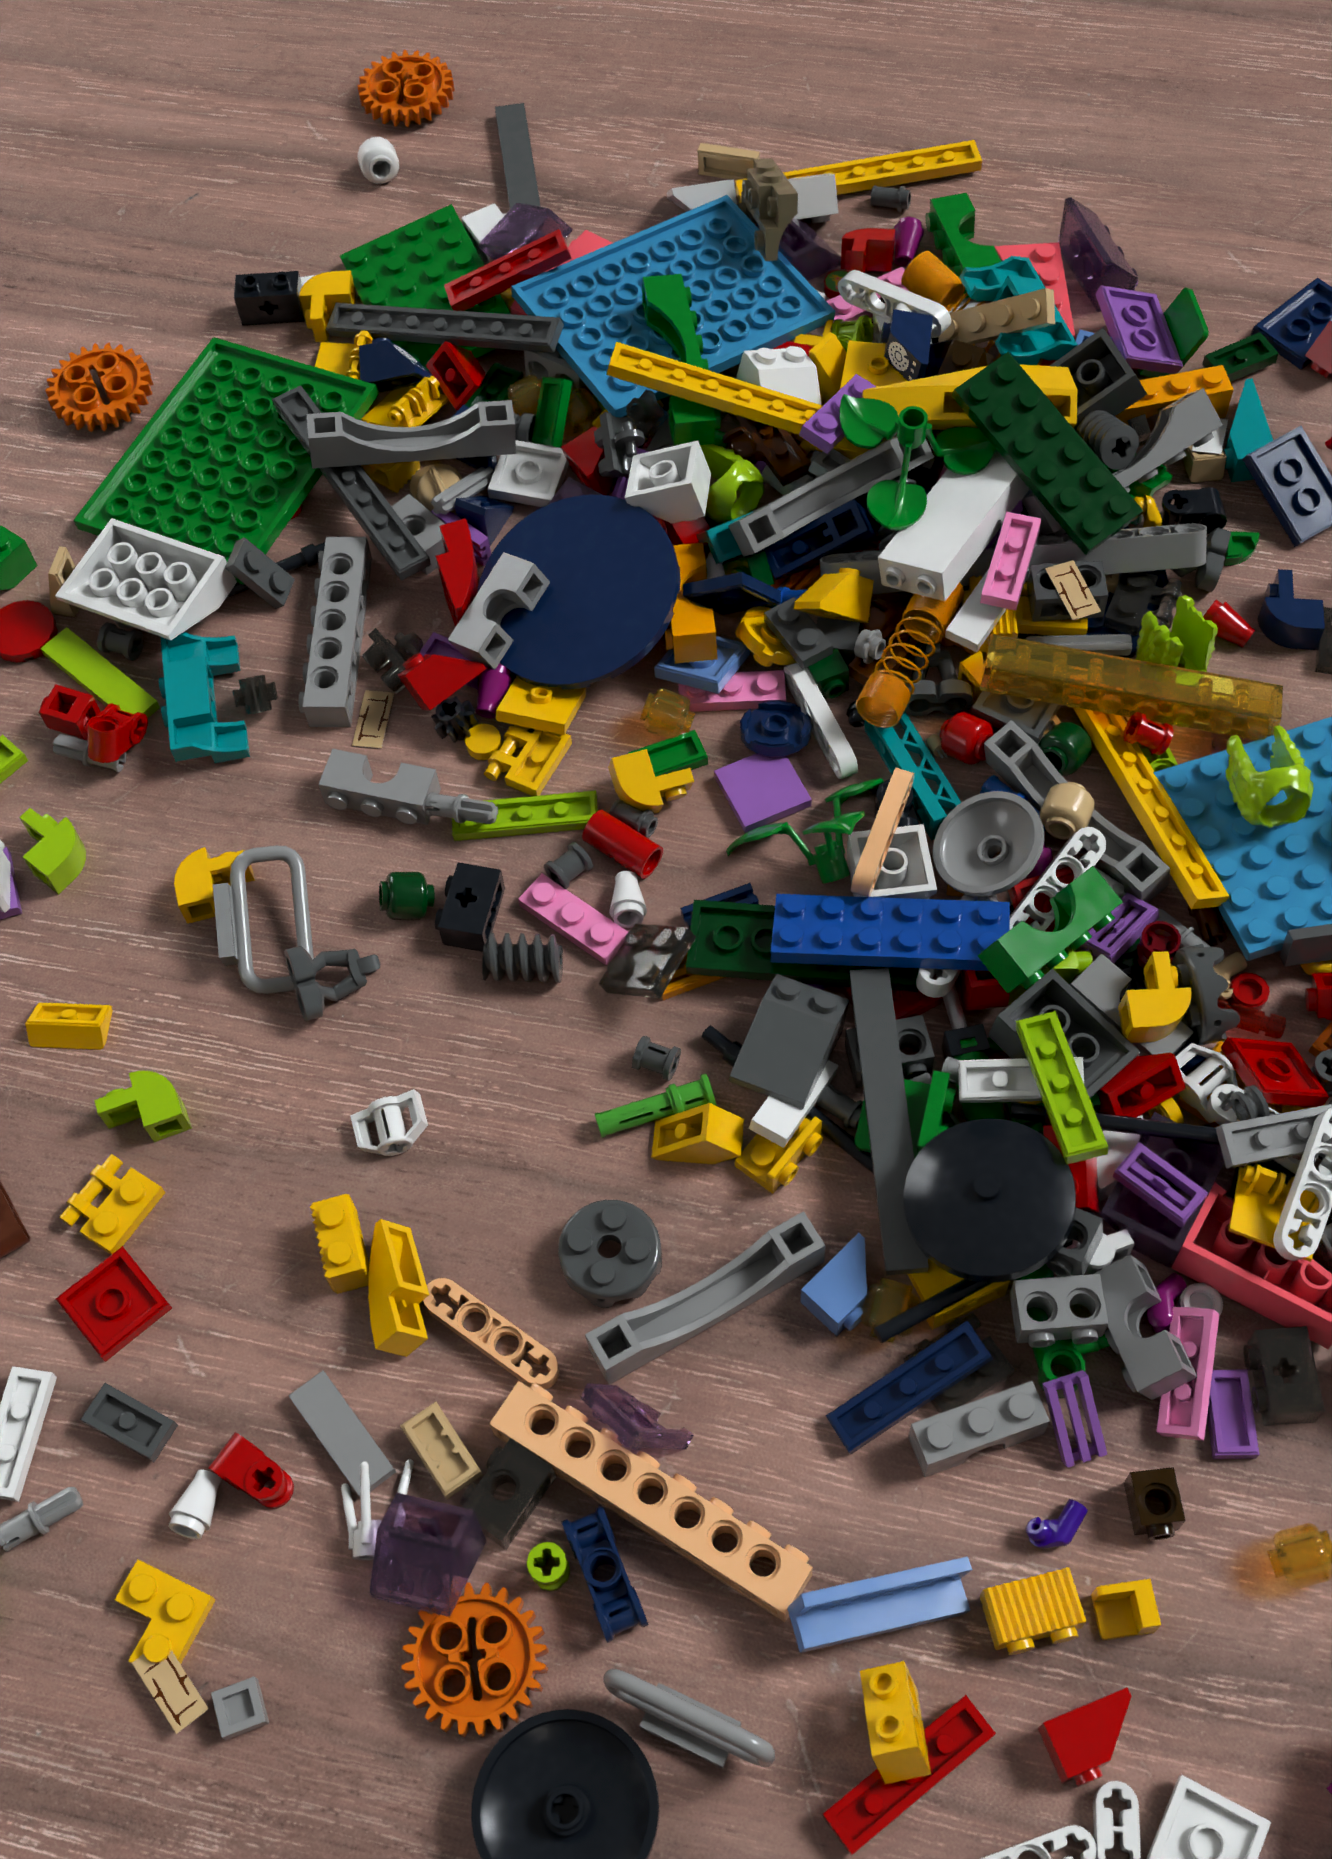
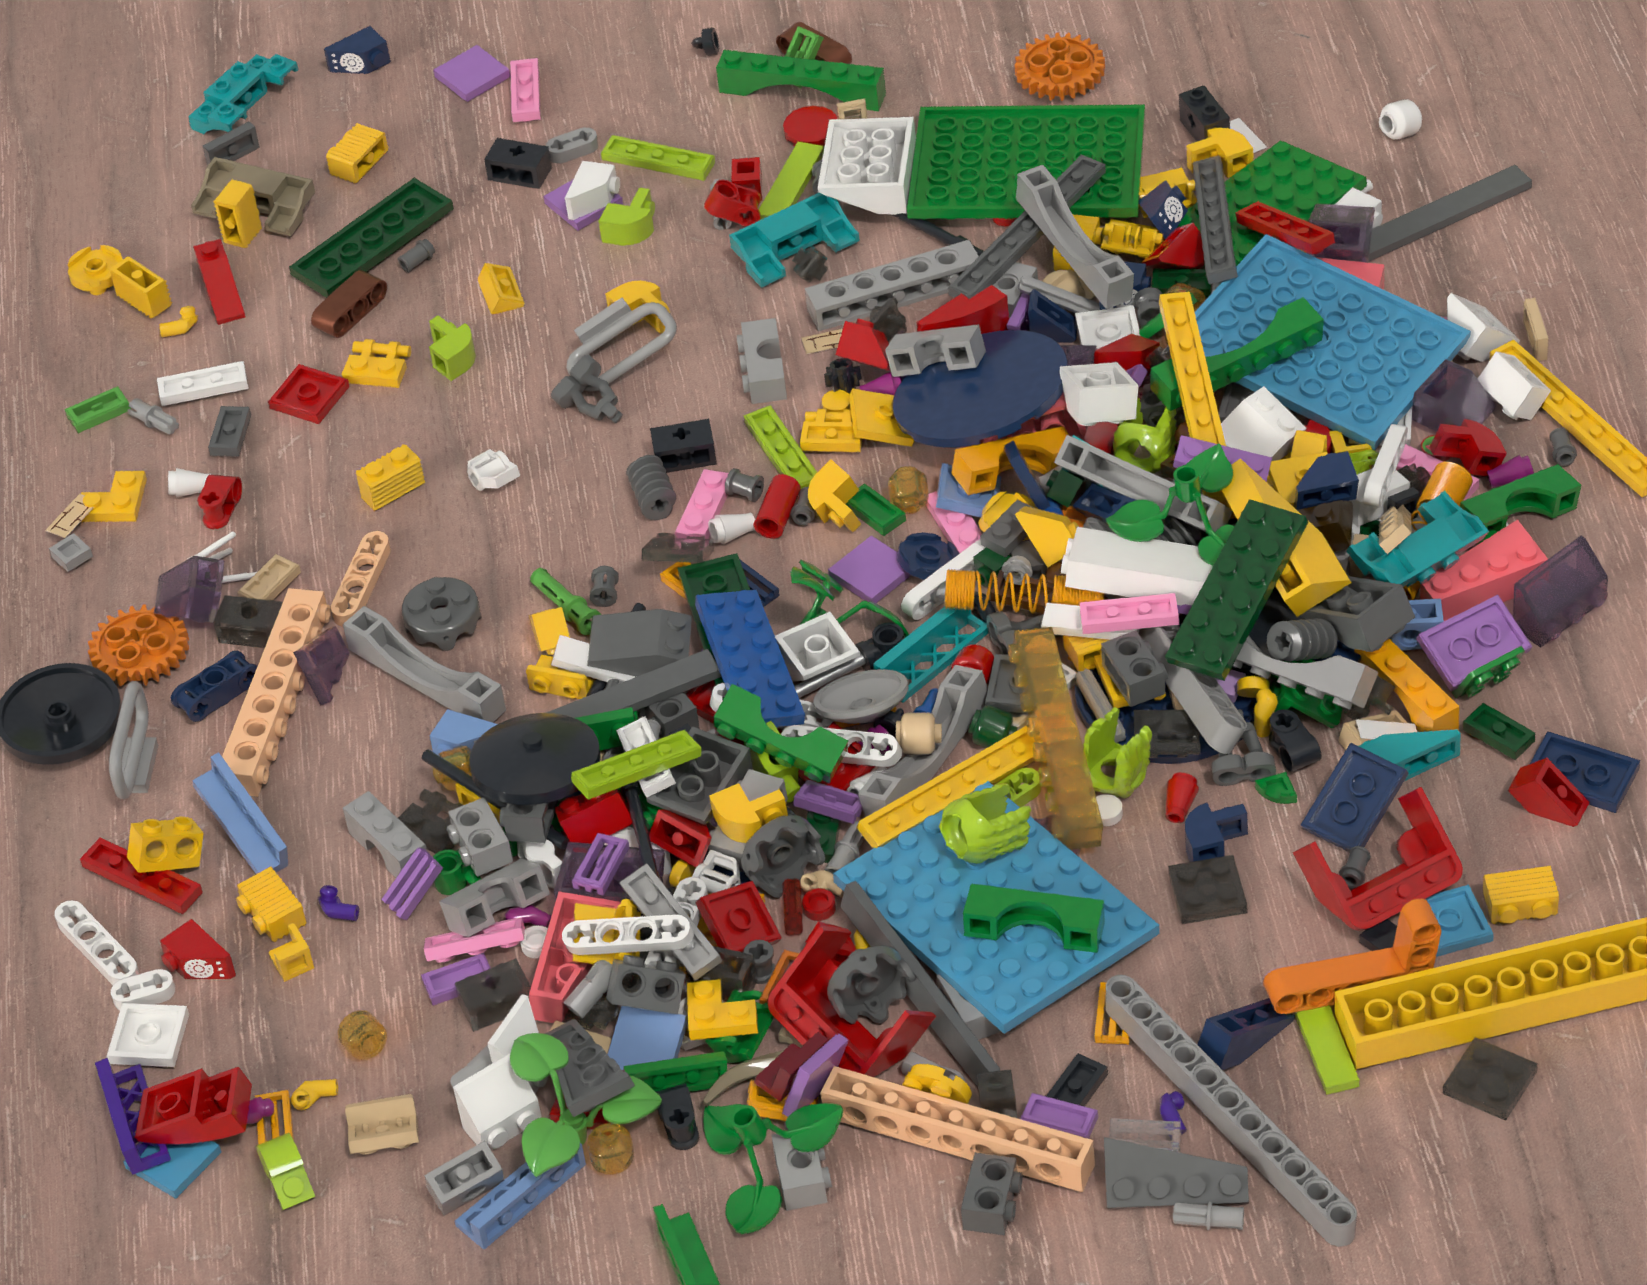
camera: 70 degrees right, 15 degrees down
(260, 573) = (916, 219): dark grey plate -> none
(341, 1431) = (263, 533): light grey tile -> none
(396, 1290) = (369, 514): yellow slope -> none
(405, 895) = (675, 406): dark green head -> none
(424, 92) = (1500, 103): orange gear -> none
(461, 808) = (760, 405): light grey axle -> none
(537, 1558) = (214, 648): lime bush -> none
(619, 445) = (1129, 350): dark grey hips -> none
(770, 202) = (1456, 349): dark tan bracket -> none
(882, 832) = (831, 626): light nougat beam -> none
(909, 1387) = (403, 793): dark blue tile -> none
(1073, 590) = (1122, 661): tan sticker -> none
(1148, 733) = (1020, 763): red bush -> none
(1157, 937) = (819, 815): dark red wheel -> none
(1158, 1484) = (370, 947): dark brown brick -> none
(1250, 1104) = (684, 890): dark grey bush -> none

